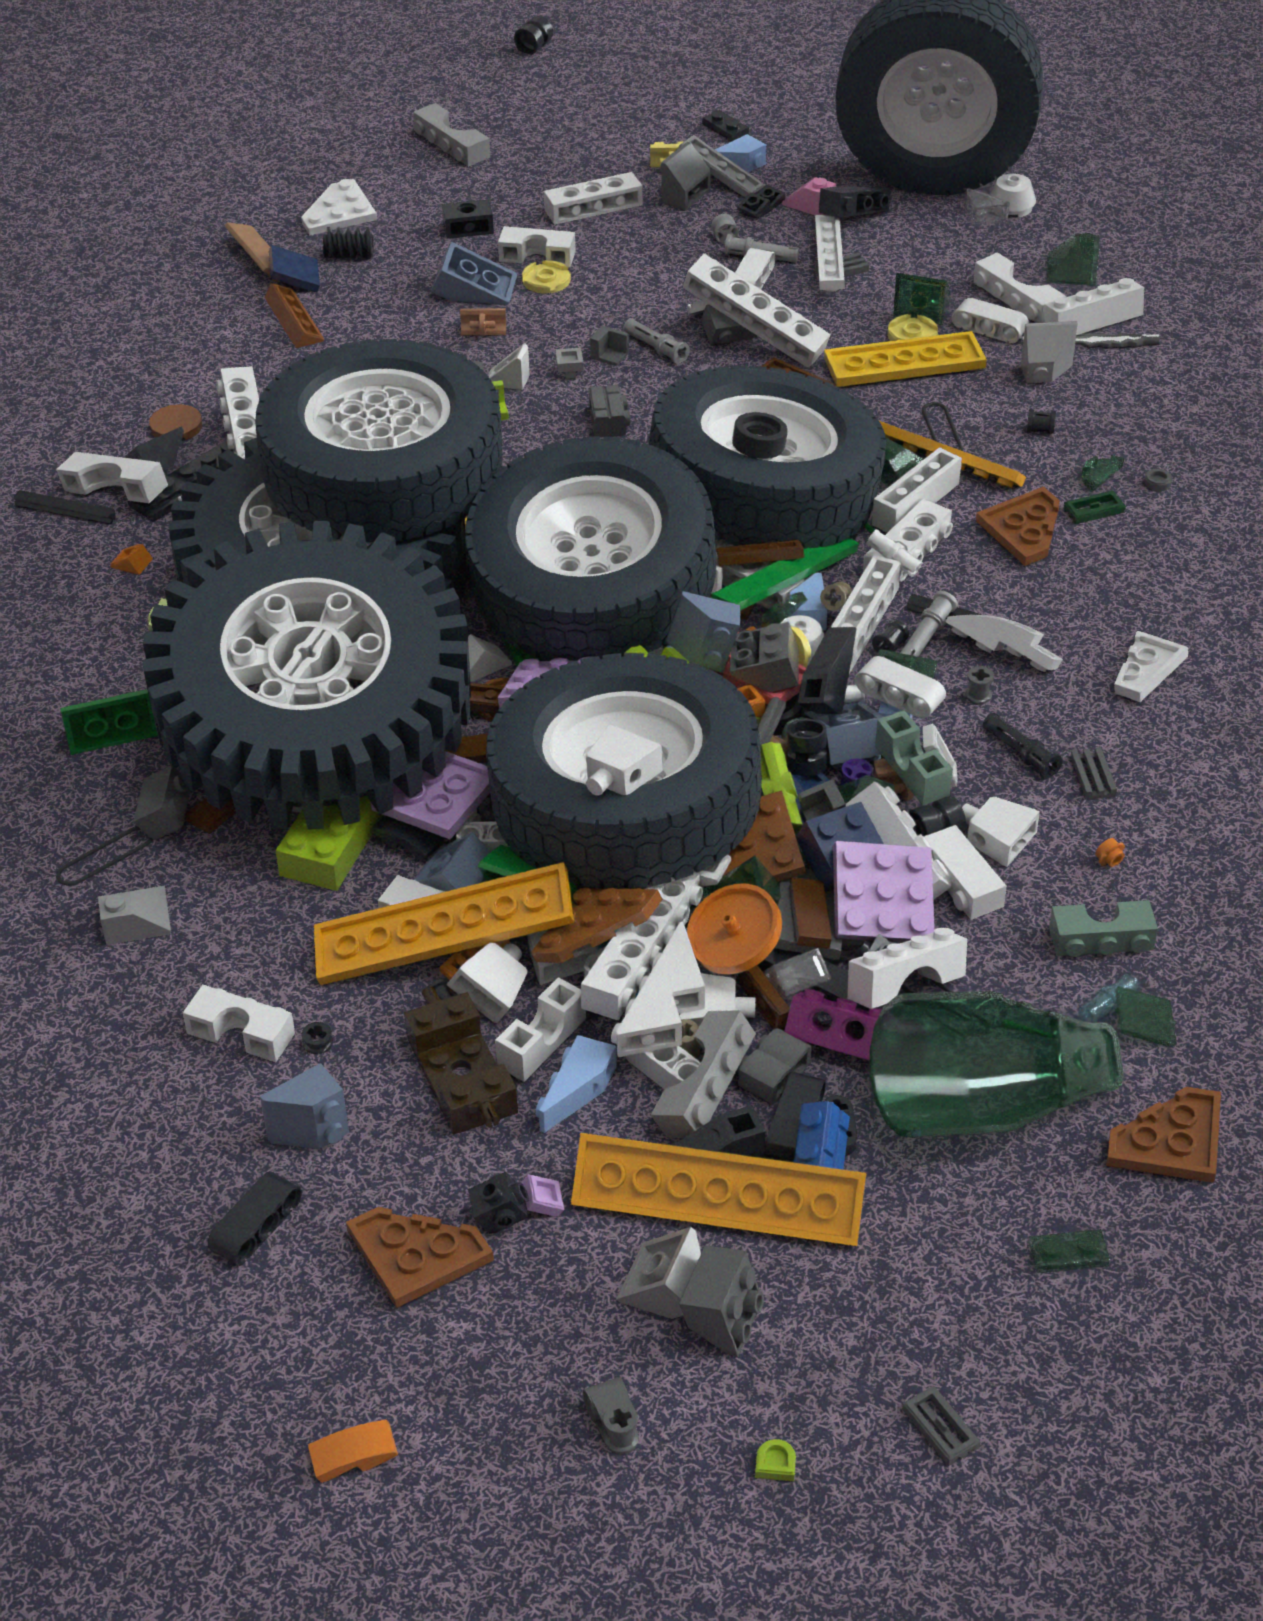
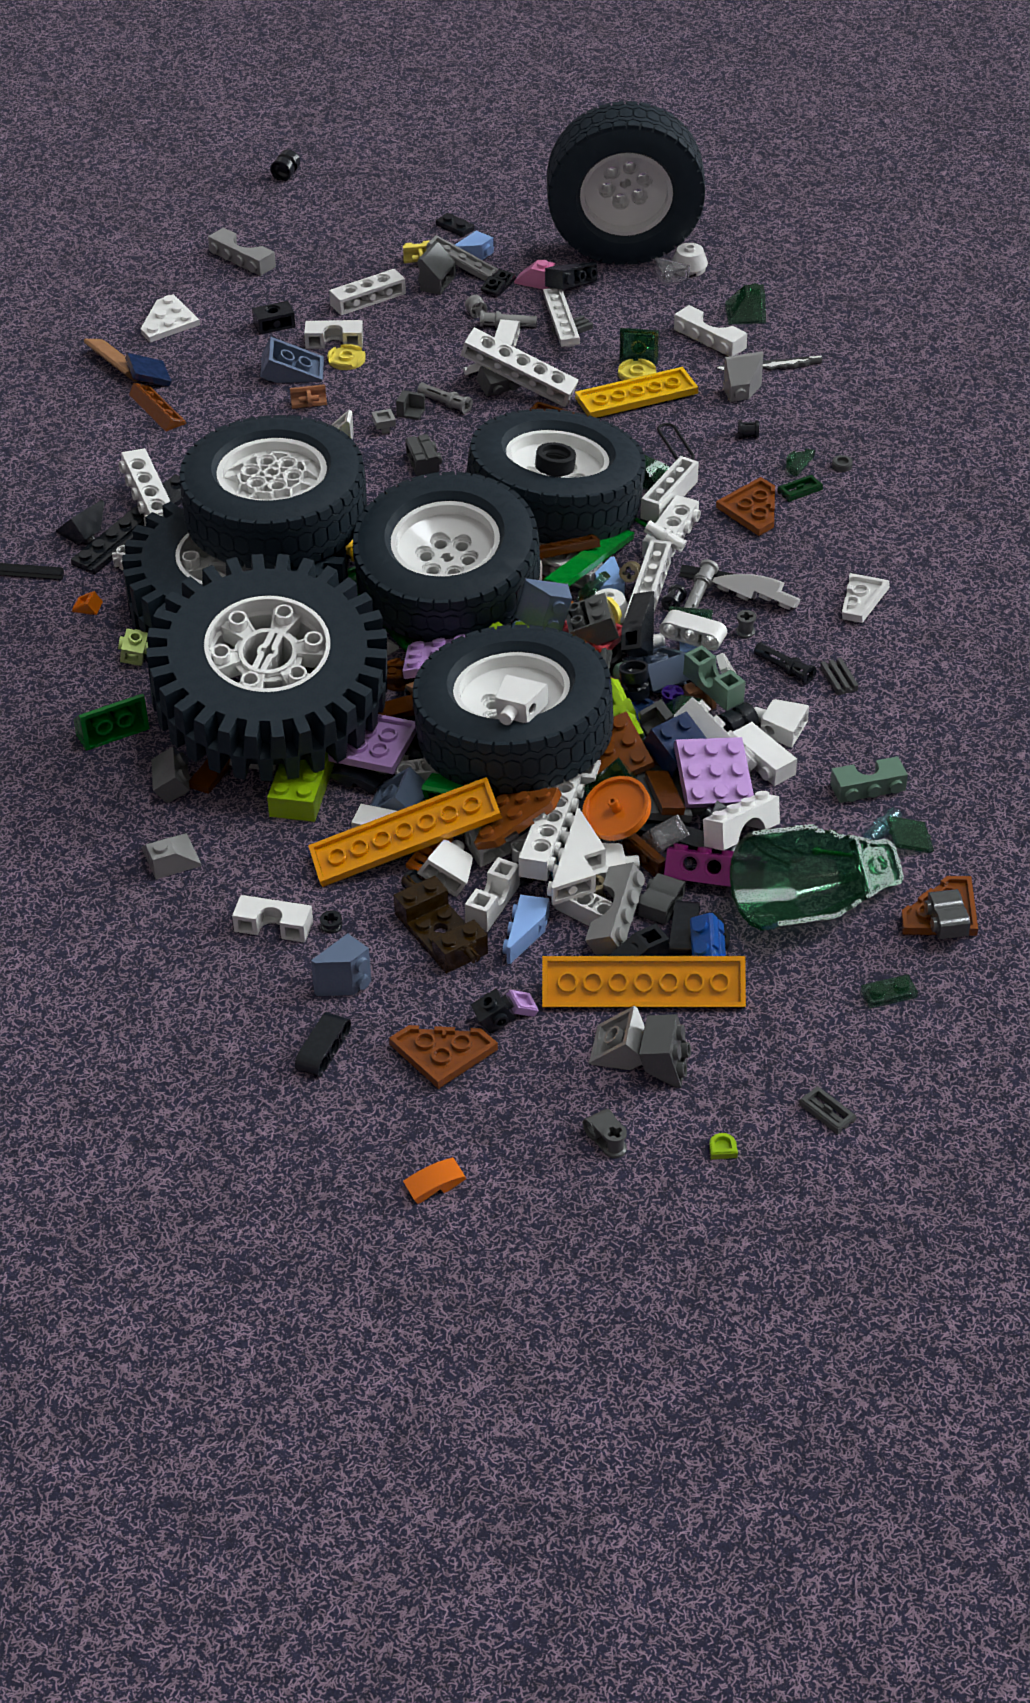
camera: 10 degrees left, 0 degrees up
(70, 883) = (136, 826): black piece -> none
(88, 472) = (35, 542): white arch -> none
(173, 417) = (88, 495): dark orange tile -> none
(348, 242) = (185, 344): black piece -> none
(981, 466) = (712, 467): light orange plate -> none
(990, 320) = (694, 357): white beam -> none
(1098, 306) = (773, 339): white brick -> none
(1110, 852) = (863, 728): orange plate -> none
(1174, 1147) = (947, 914): none -> dark grey brick

